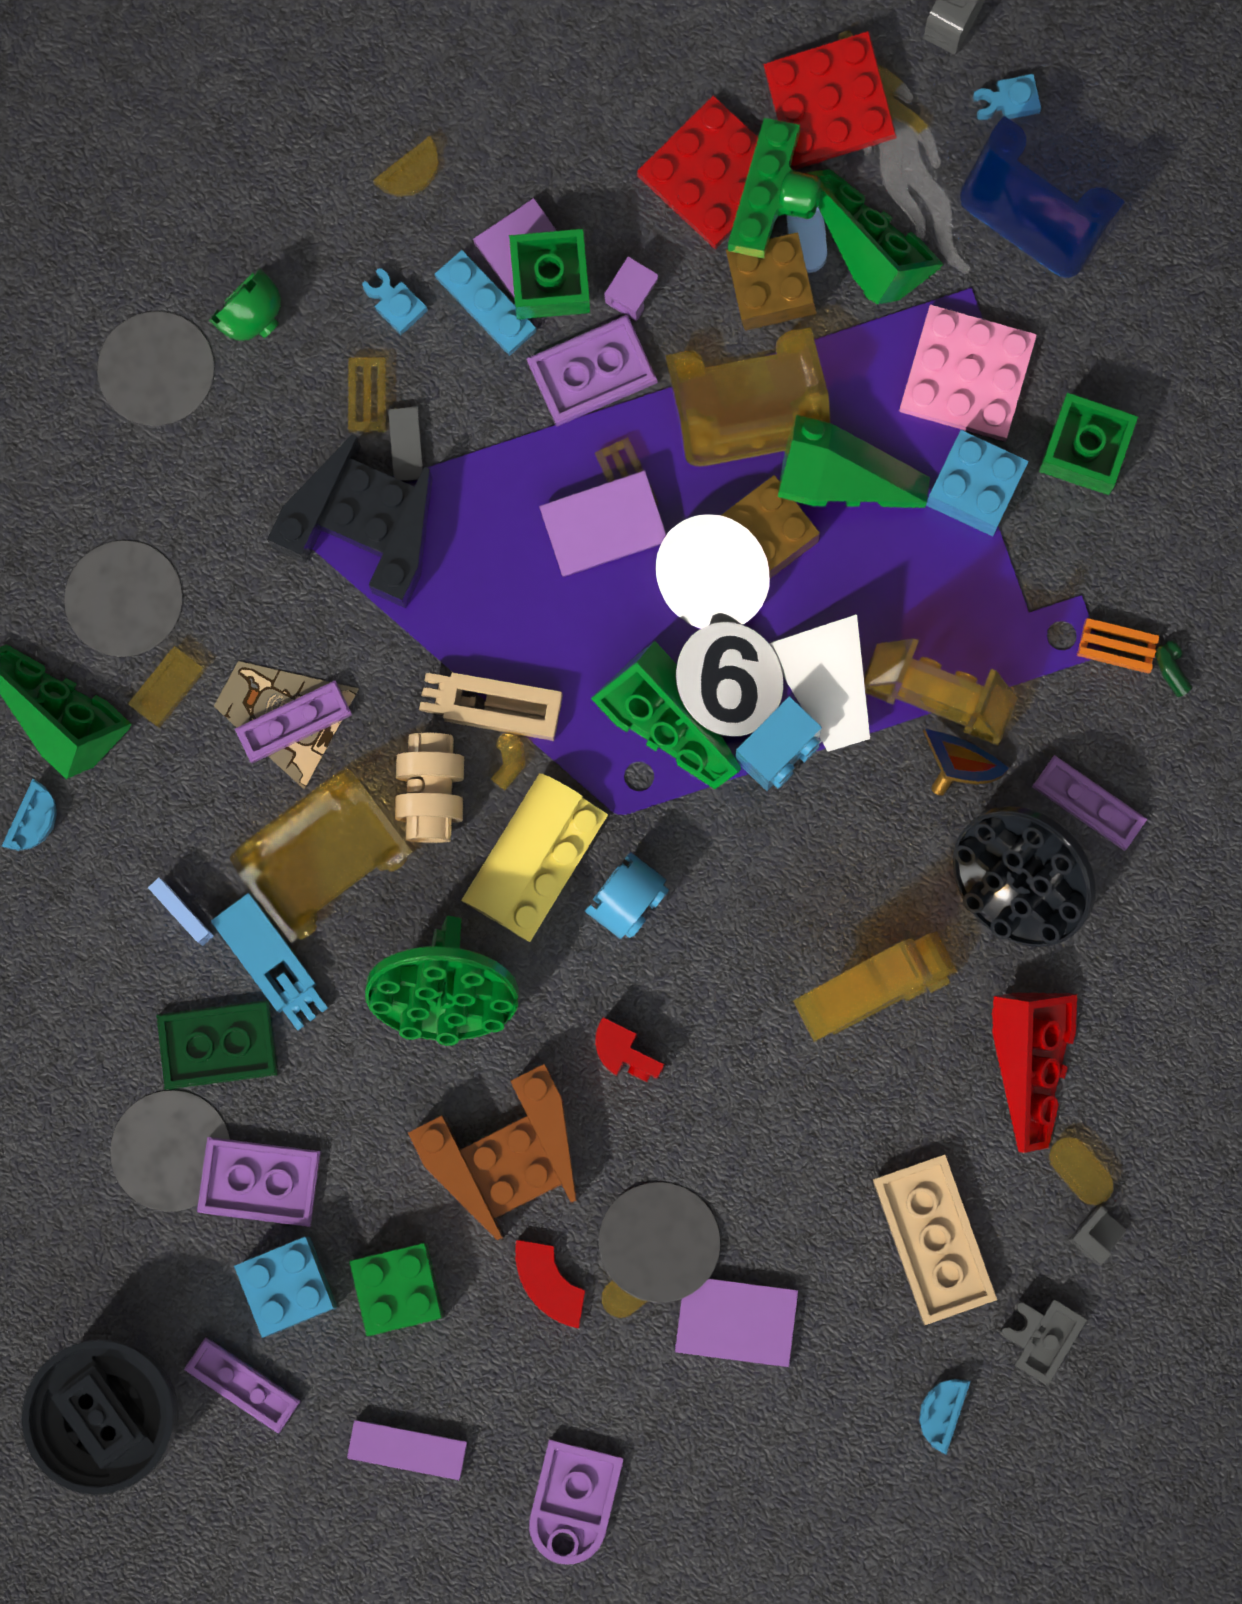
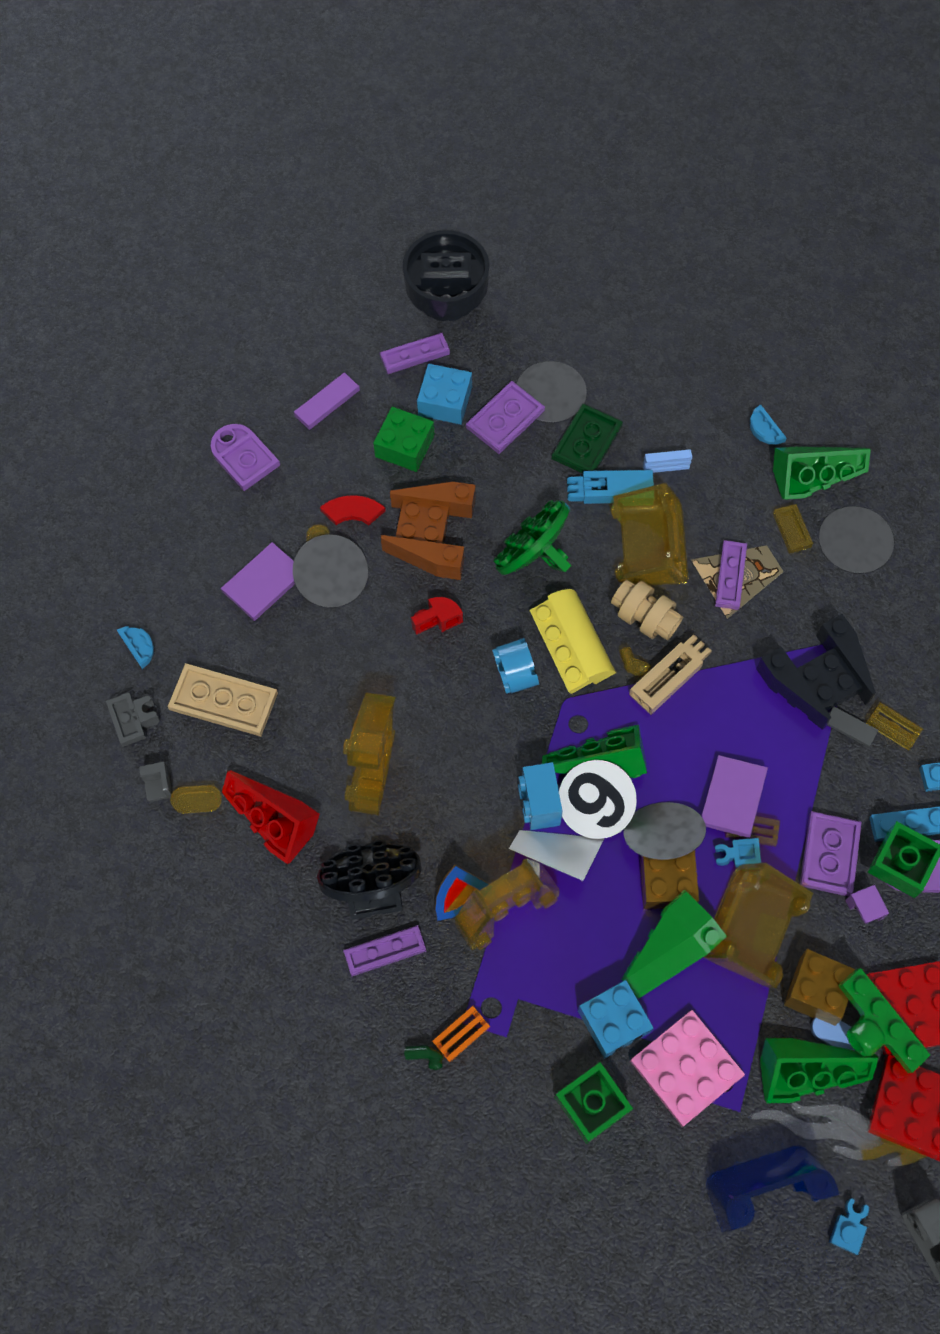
camera: 120 degrees right, 15 degrees down
(667, 467) = (743, 852): none -> dark azure plate

